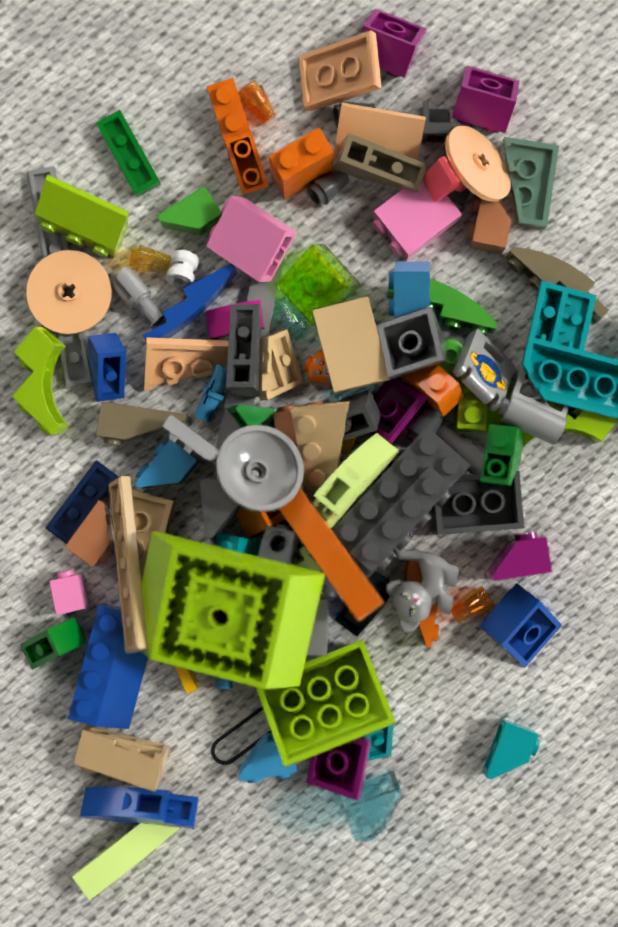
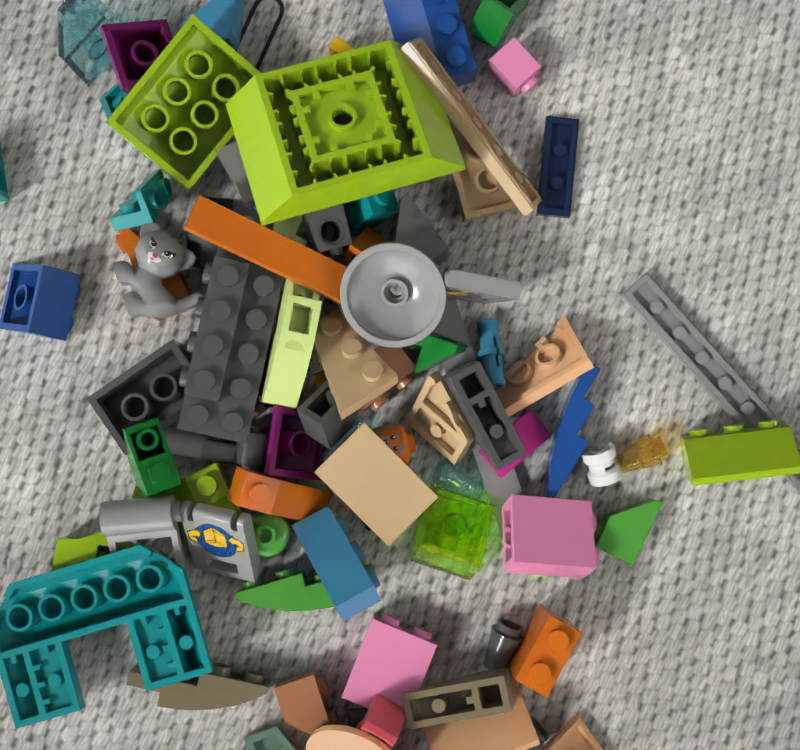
camera: 150 degrees right, 0 degrees up
(35, 396) = (670, 243): lime arch -> none
(69, 314) = (727, 358): light nougat piece -> none
(94, 536) = (523, 137): nougat slope -> none
(107, 366) = (617, 317): blue slope -> none
(128, 153) = (734, 555): green plate -> none
(129, 423) = (561, 271): dark tan slope -> none
(136, 296) = (632, 408): light grey arm -> none
(169, 467) = (491, 248): dark azure slope -> none
(237, 136) = (630, 641): orange slope -> none
(256, 101) = (632, 693): clear orange cone -> none
(402, 649) = (144, 203): none -> teal bracket
(412, 342) = (311, 522): dark grey slope -> none
(472, 604) = (99, 294): clear orange cone -> none
(521, 558) = (74, 364): magenta slope -> none

